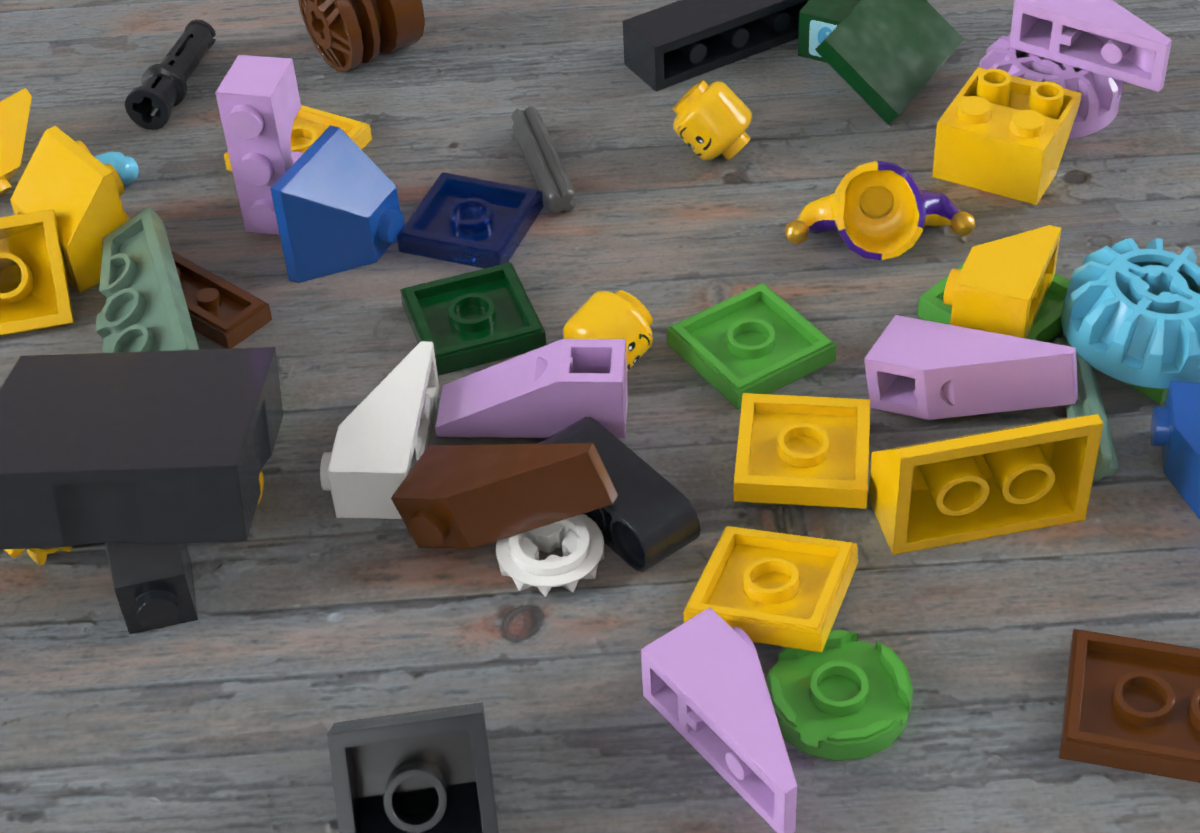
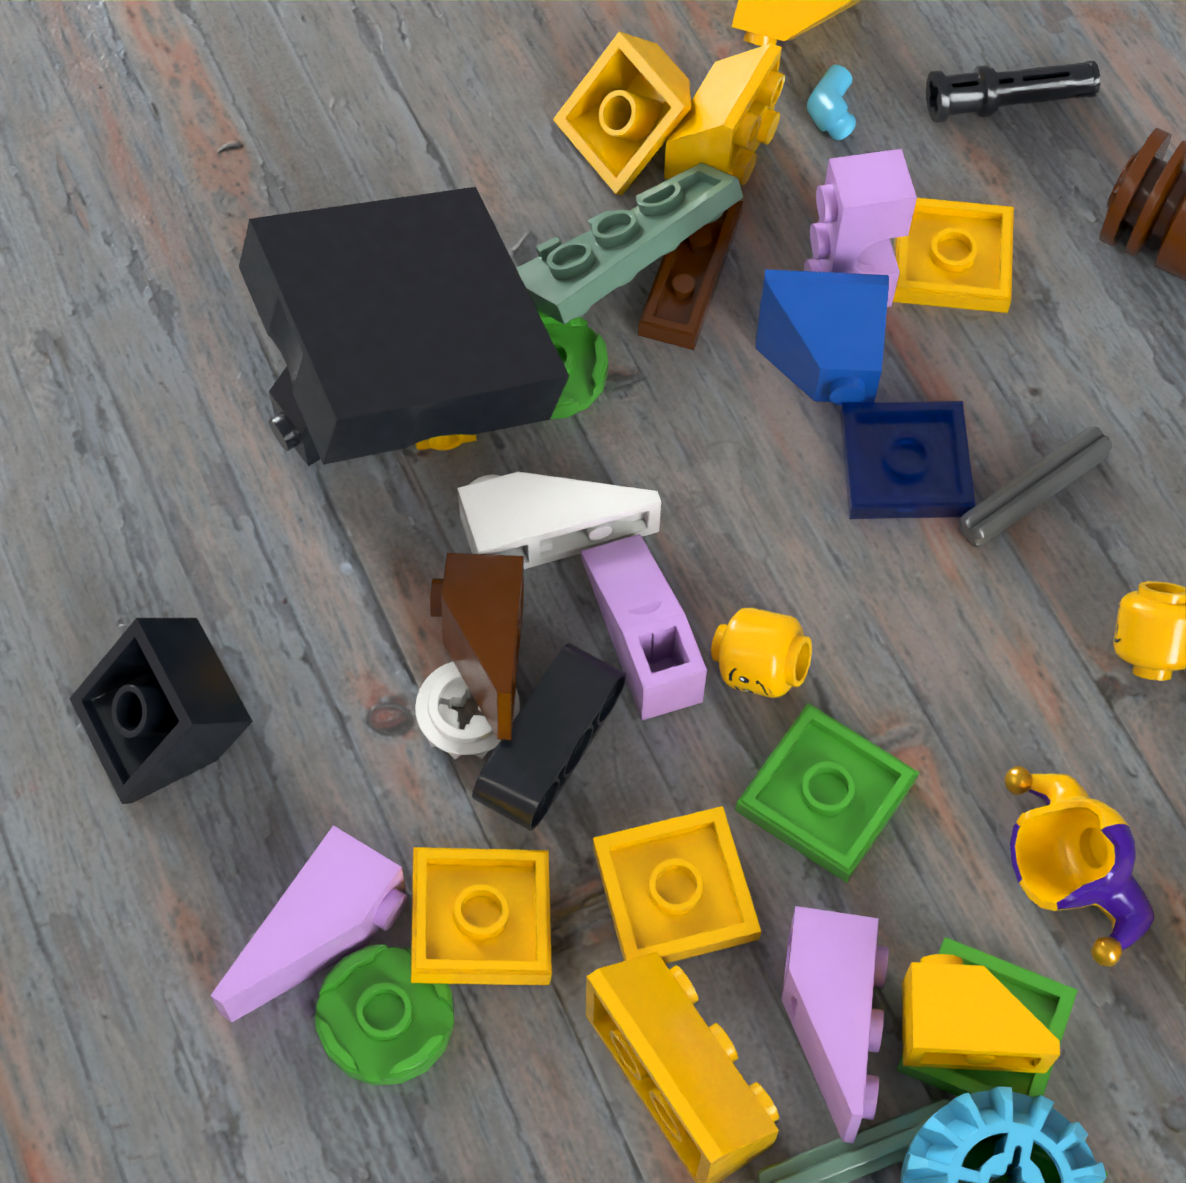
camera: 65 degrees right, 20 degrees up
(474, 317) = (758, 521): dark green tile -> none

